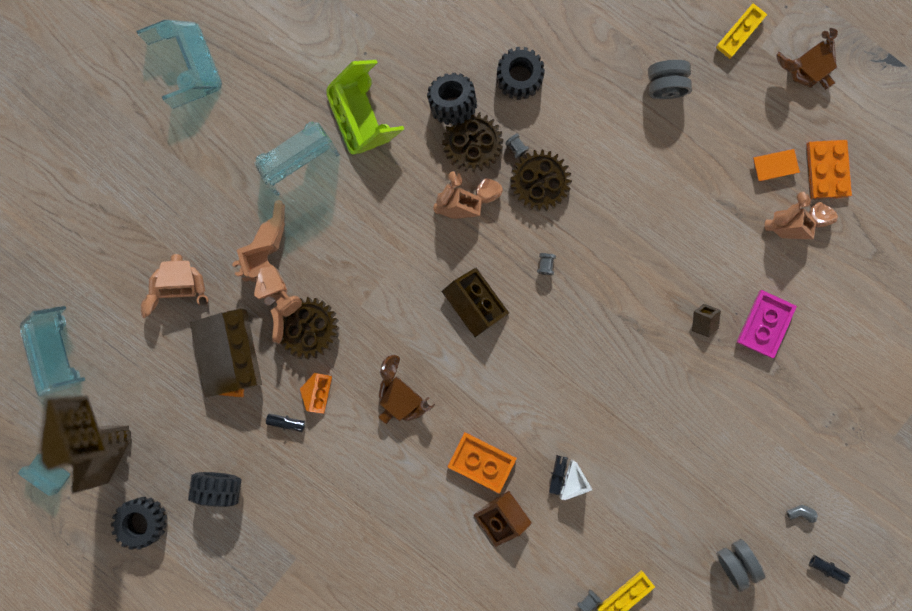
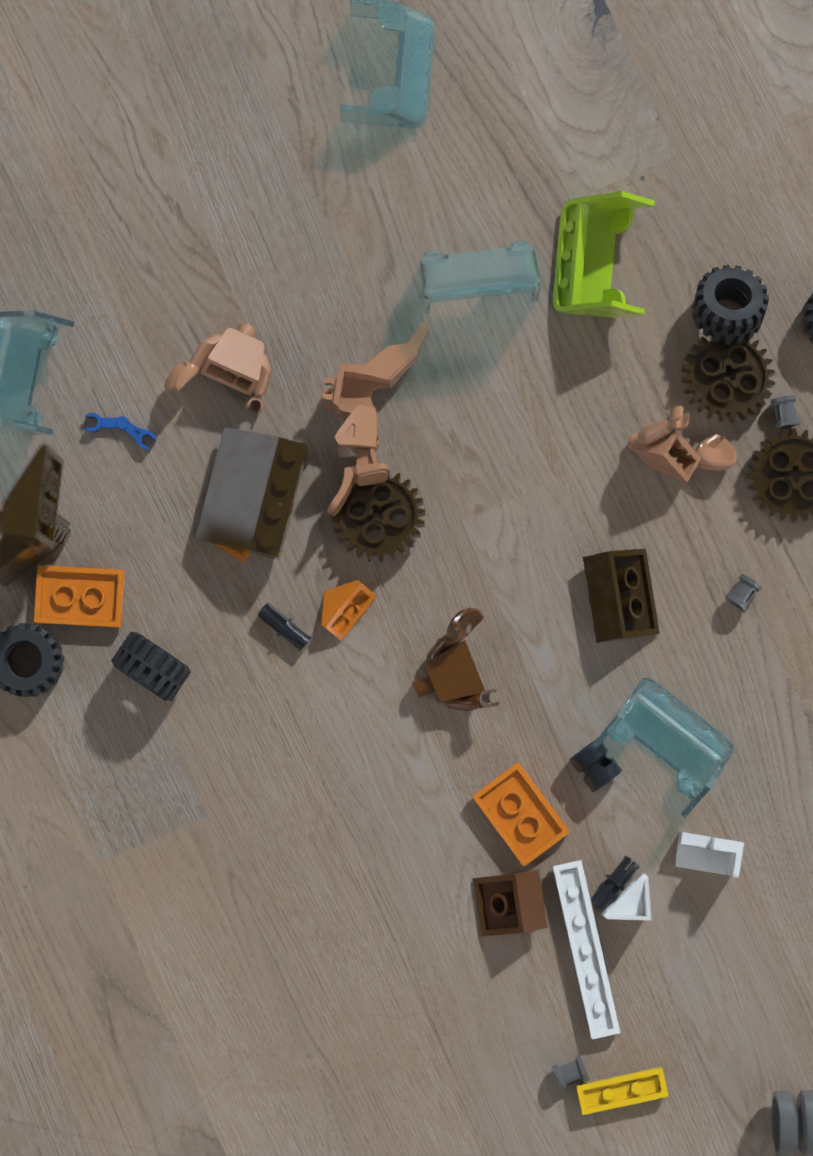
camera: 20 degrees right, 0 degrees up
(142, 352) = (123, 424): none -> blue piece
(154, 467) = (79, 596): none -> orange plate
(511, 410) = (595, 765): none -> black wheel
(550, 369) = (673, 735): none -> clear light blue windscreen
(561, 523) = (586, 949): none -> white plate
(605, 428) = (709, 854): none -> white panel

